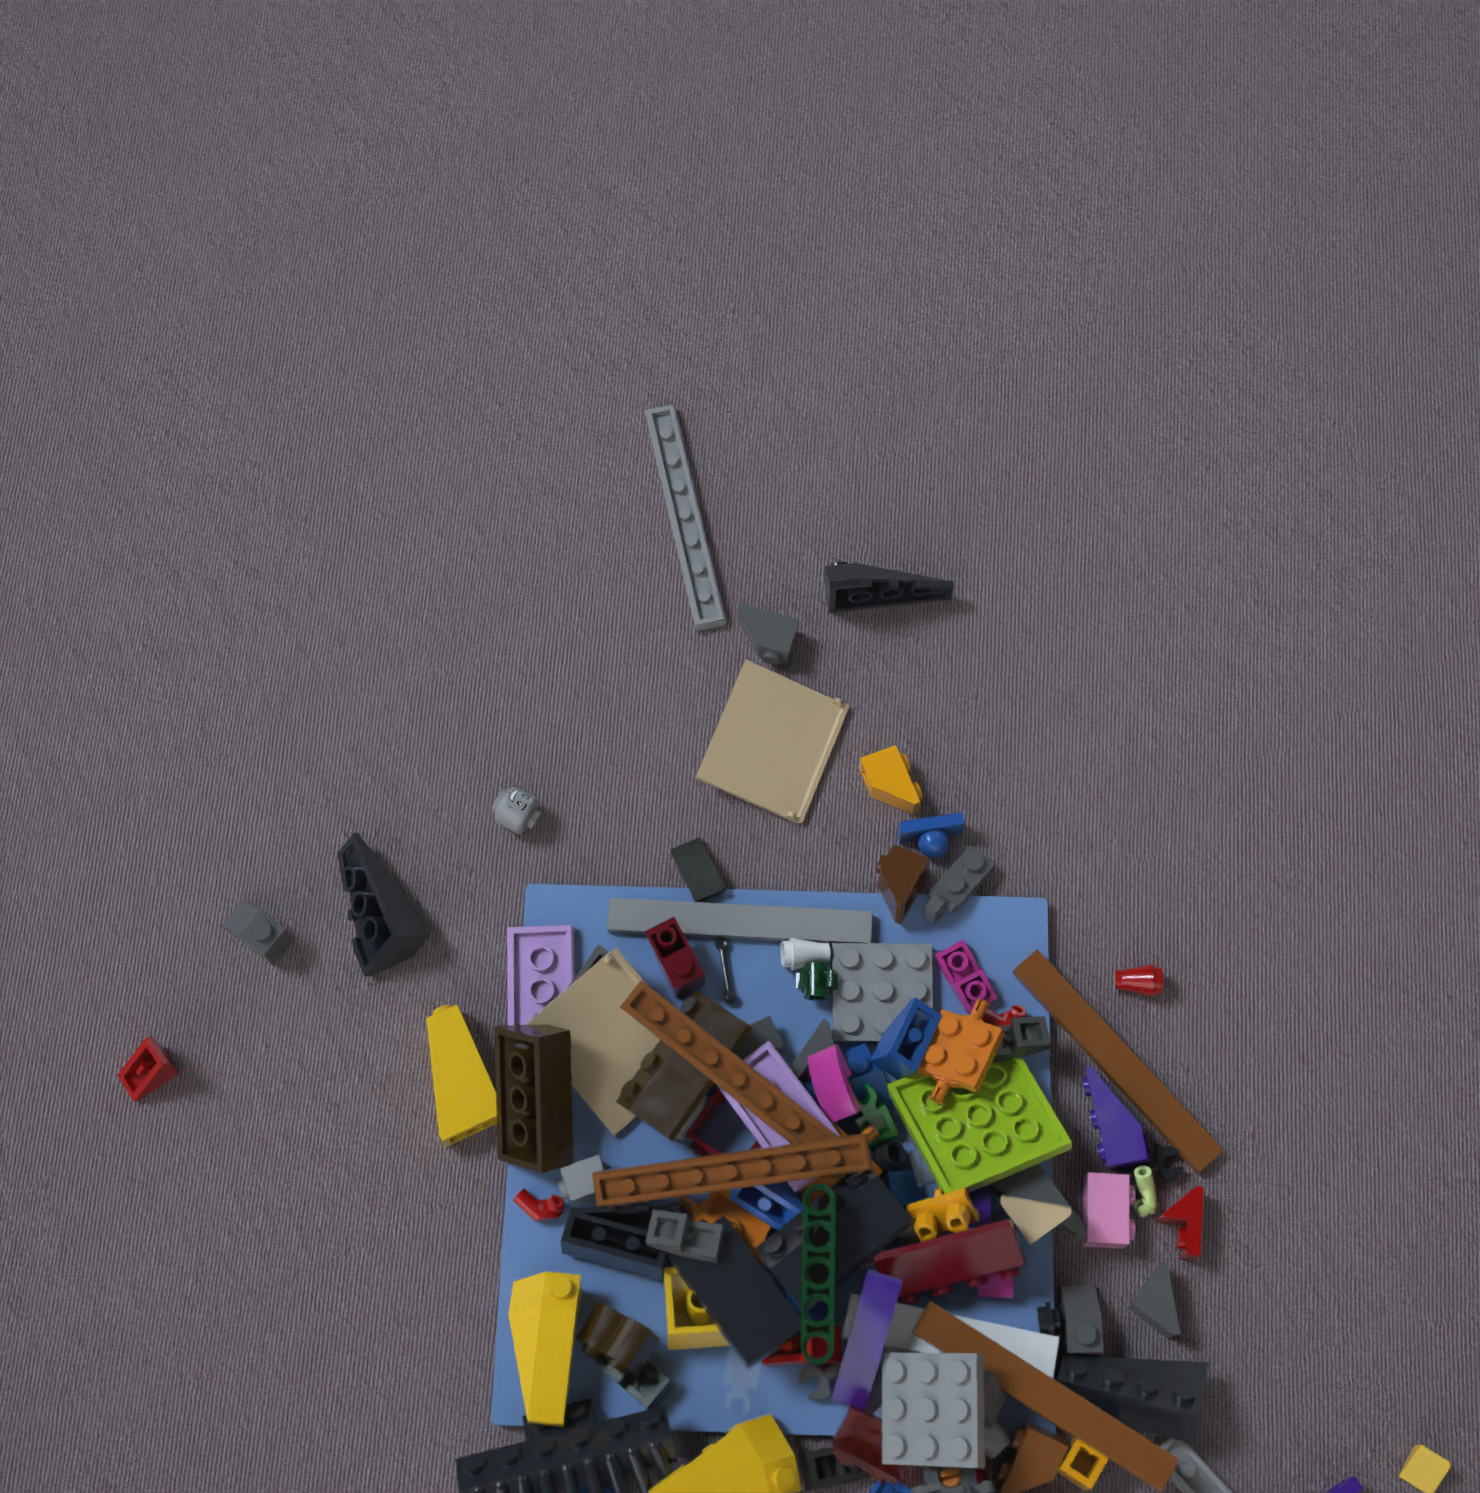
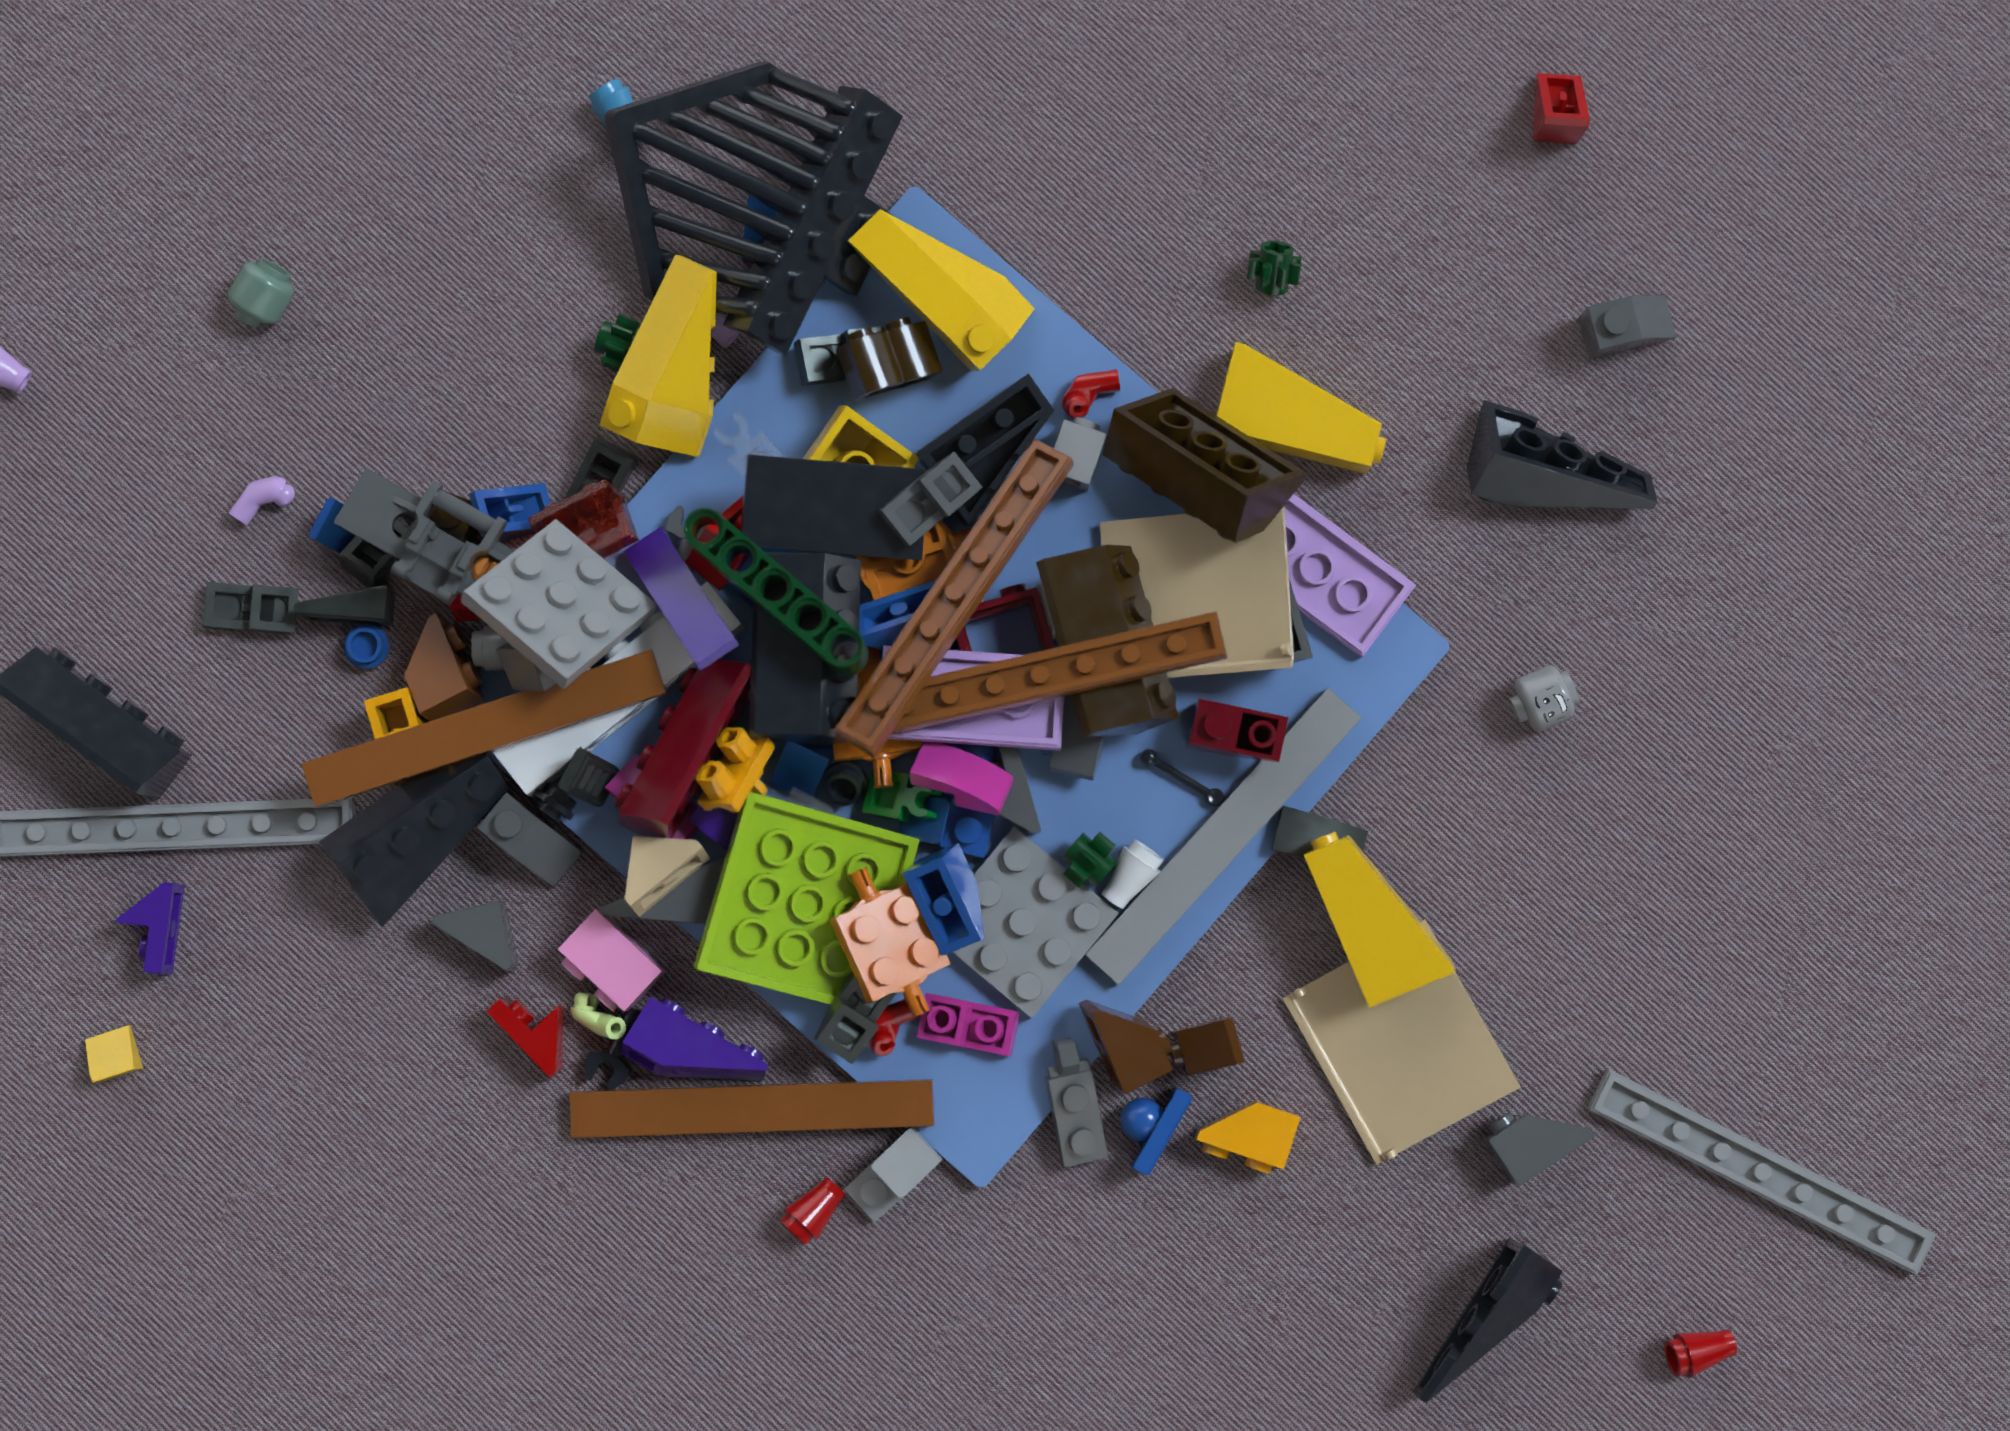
camera: 125 degrees right, 15 degrees up
(376, 1157) = (1274, 267): none -> dark green gear
(722, 795) = (1376, 927): none -> yellow slope
(806, 476) = (1697, 1351): none -> red cone
(863, 836) = (1207, 1046): none -> reddish brown slope
(1016, 1310) = (587, 777): none -> pearl dark grey slope
(1081, 951) = (893, 1174): none -> light grey slope

